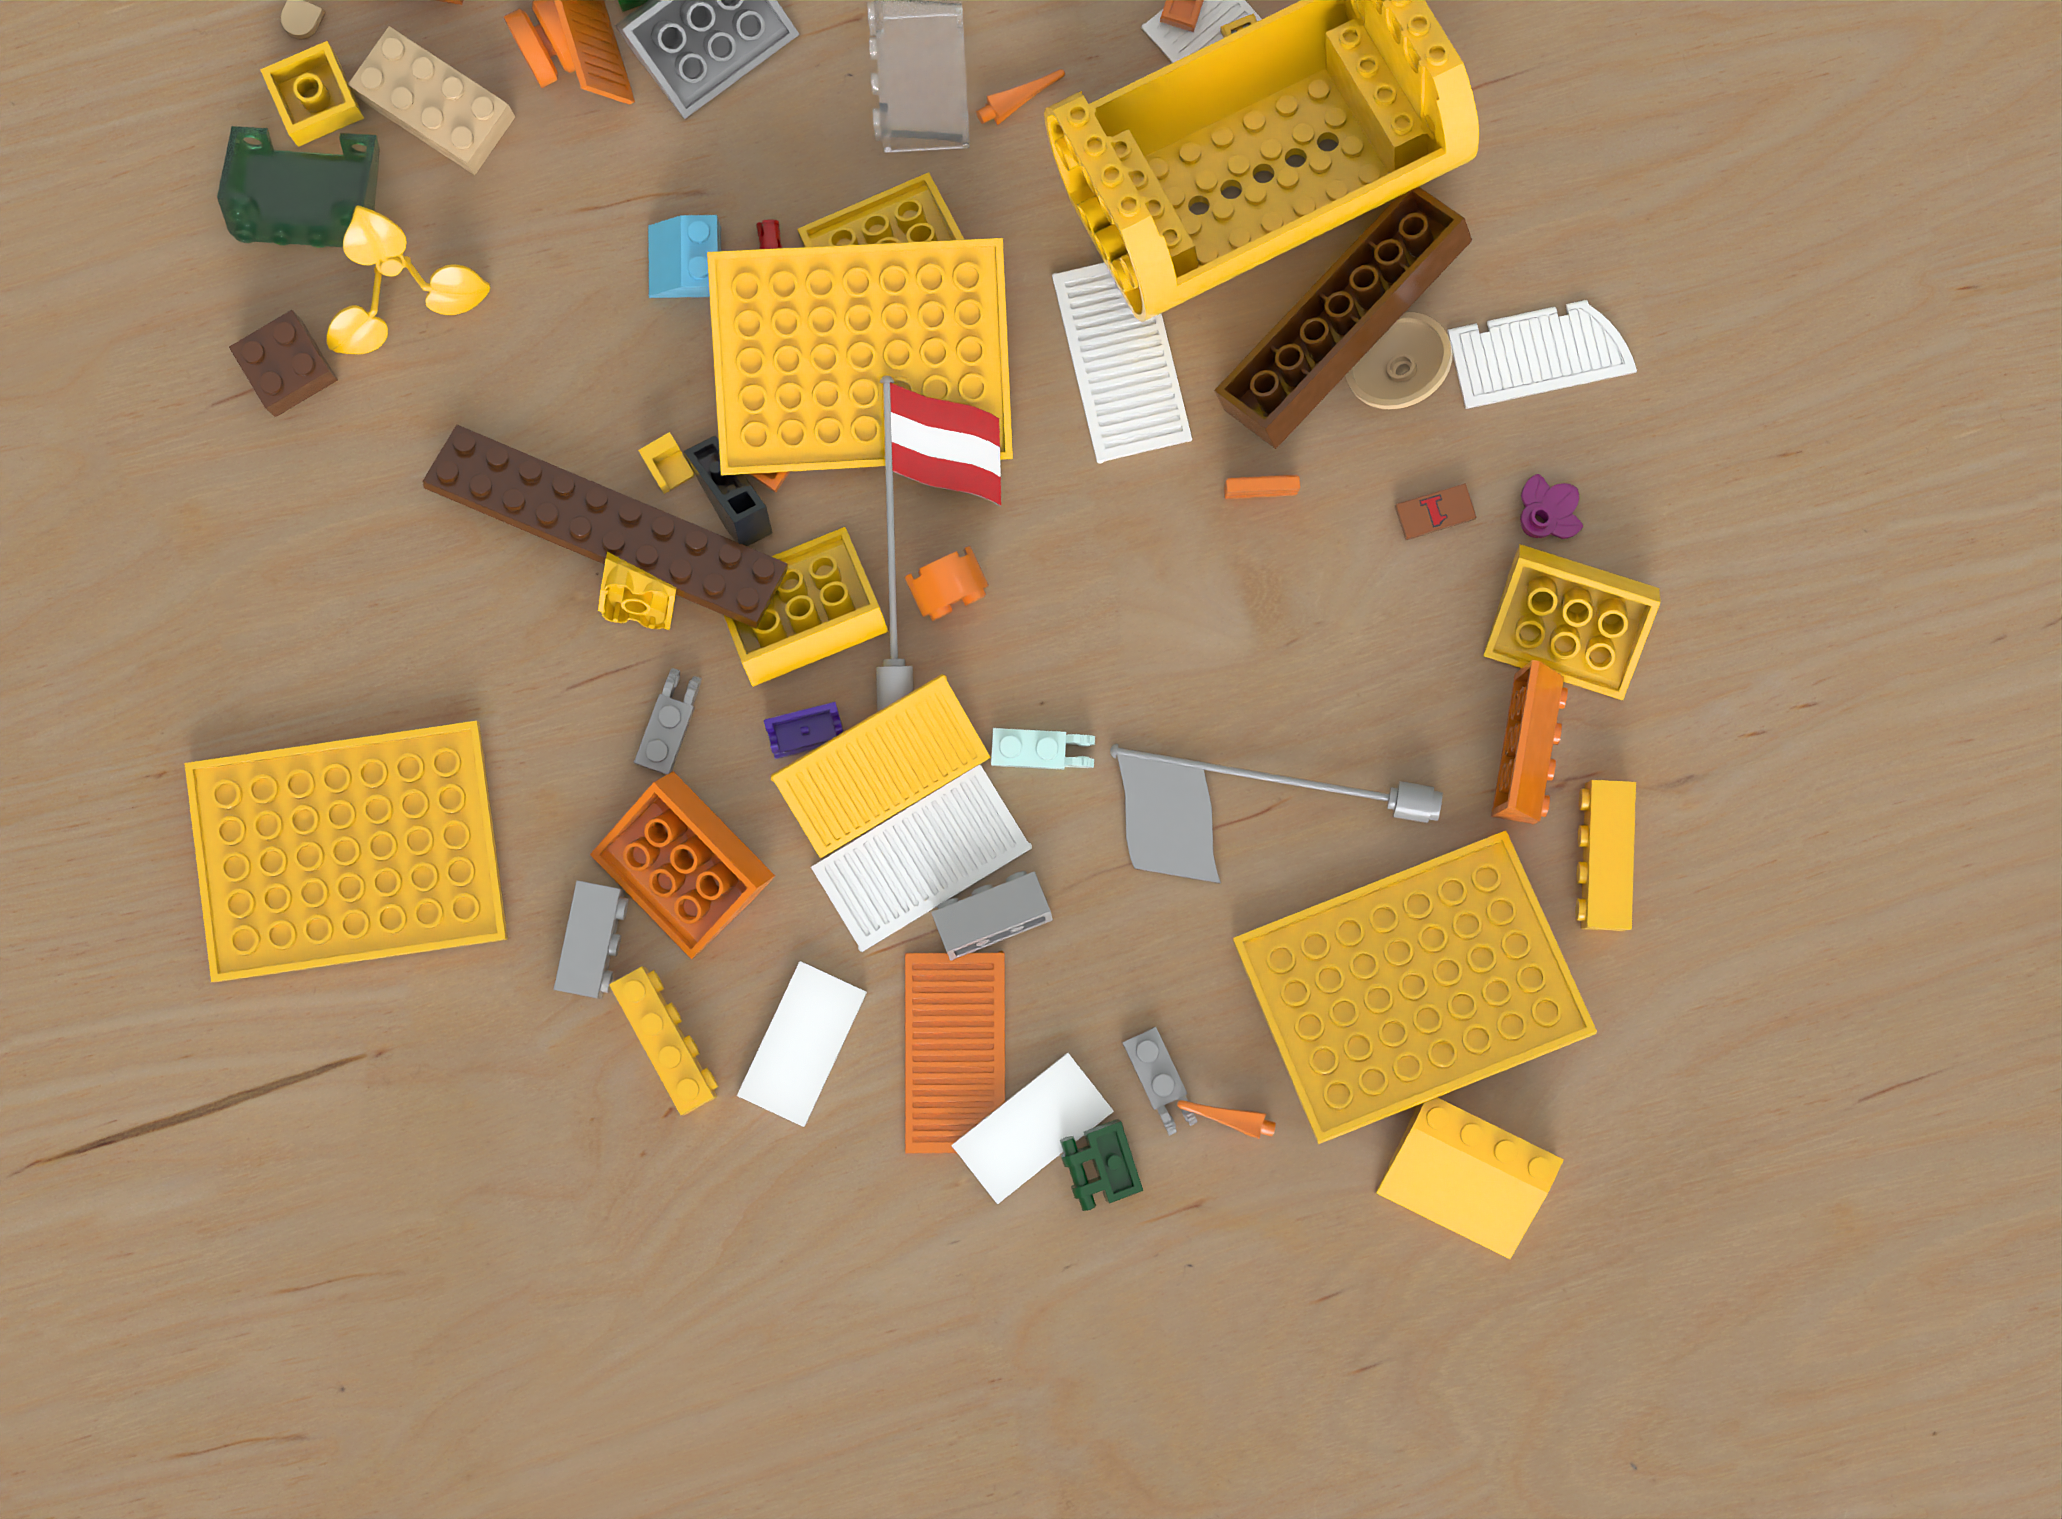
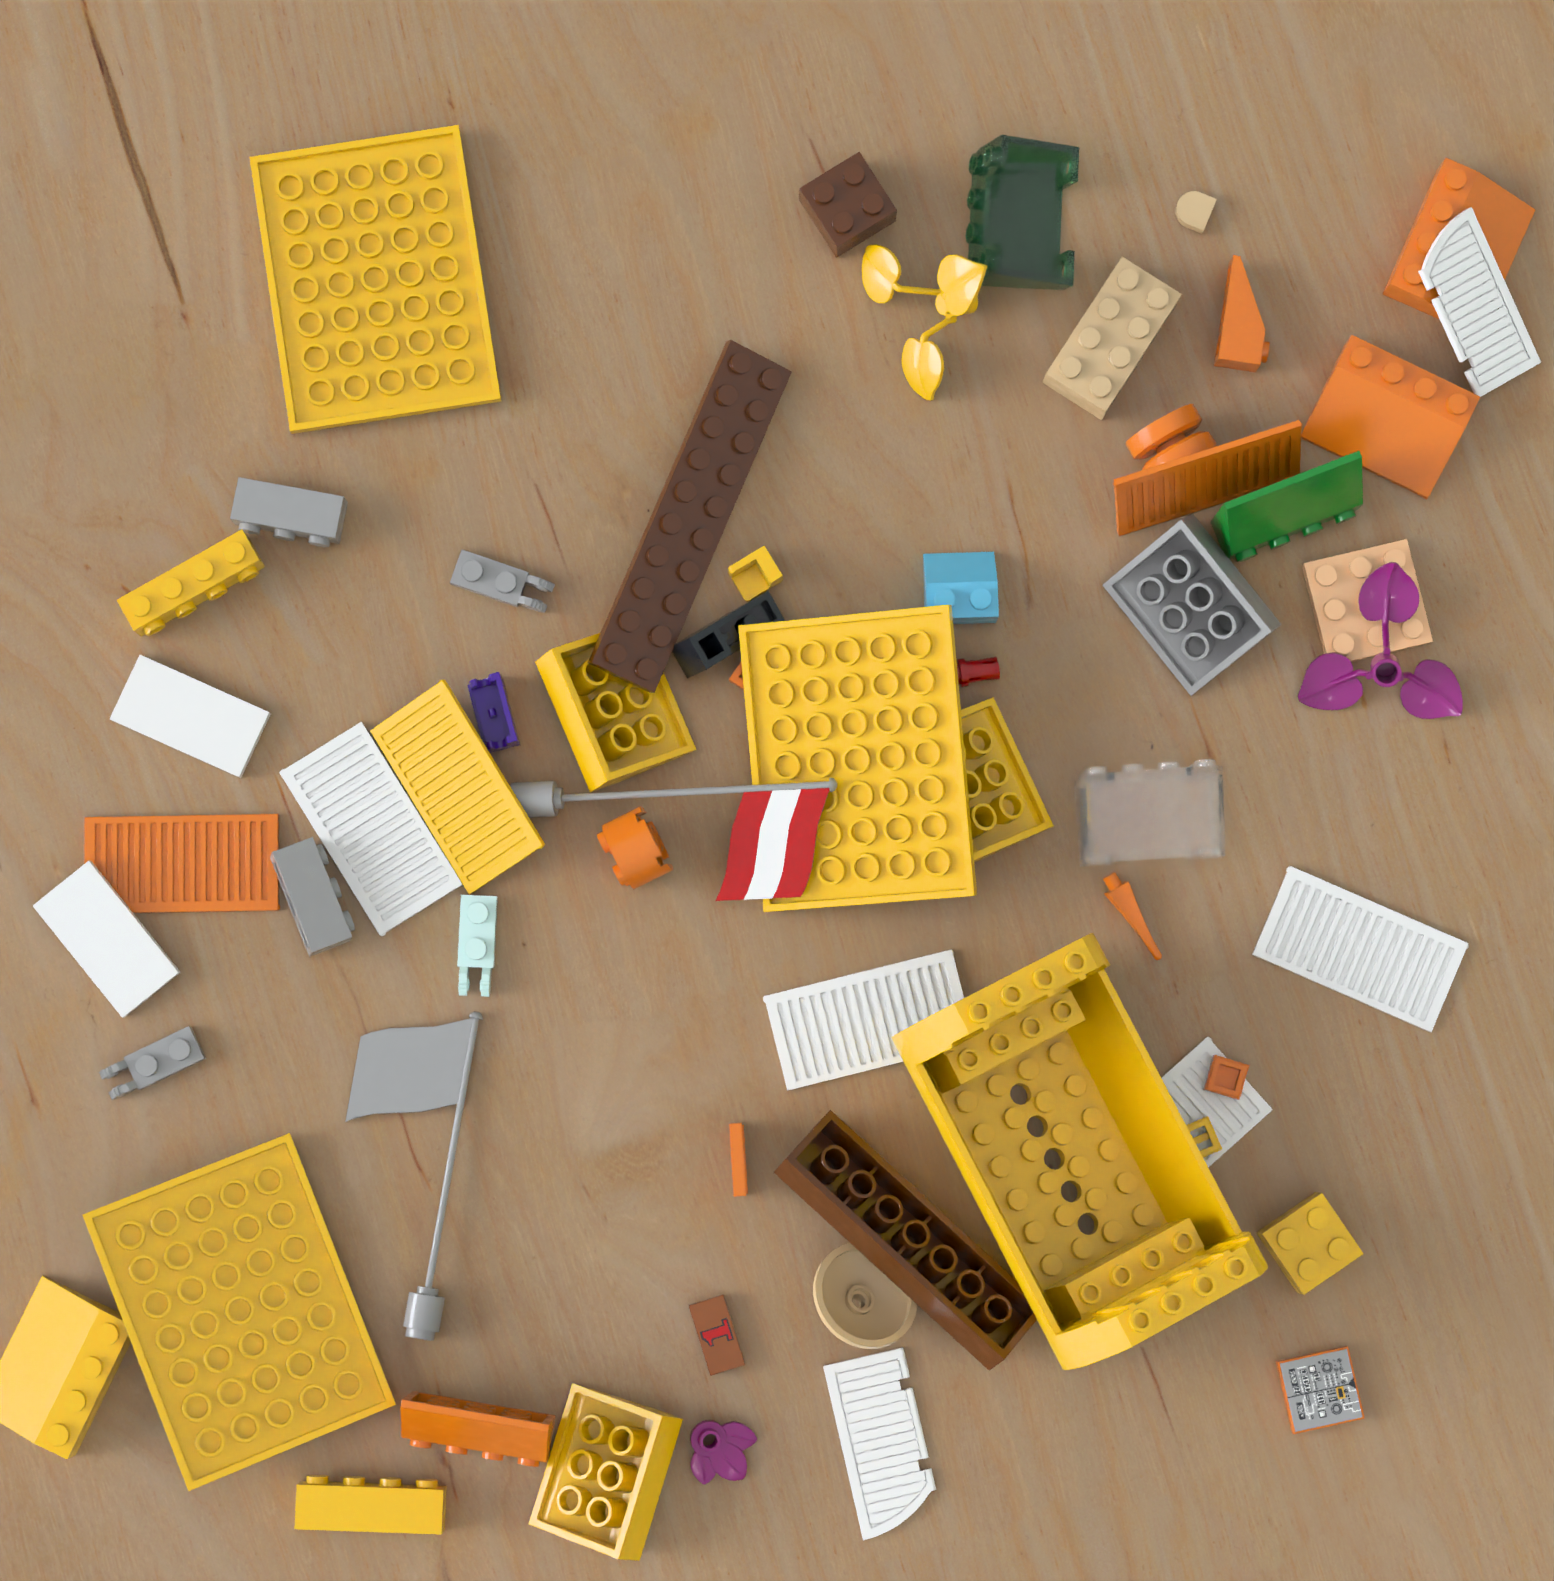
camera: 90 degrees right, 0 degrees up
(312, 93) = (1114, 223): yellow brick -> none
(635, 595) = (622, 543): yellow slope -> none
(682, 864) = (362, 597): orange slope -> none
(1112, 1162) = (73, 1016): dark green plate -> none
(1247, 1122) = (111, 1146): orange piece -> none

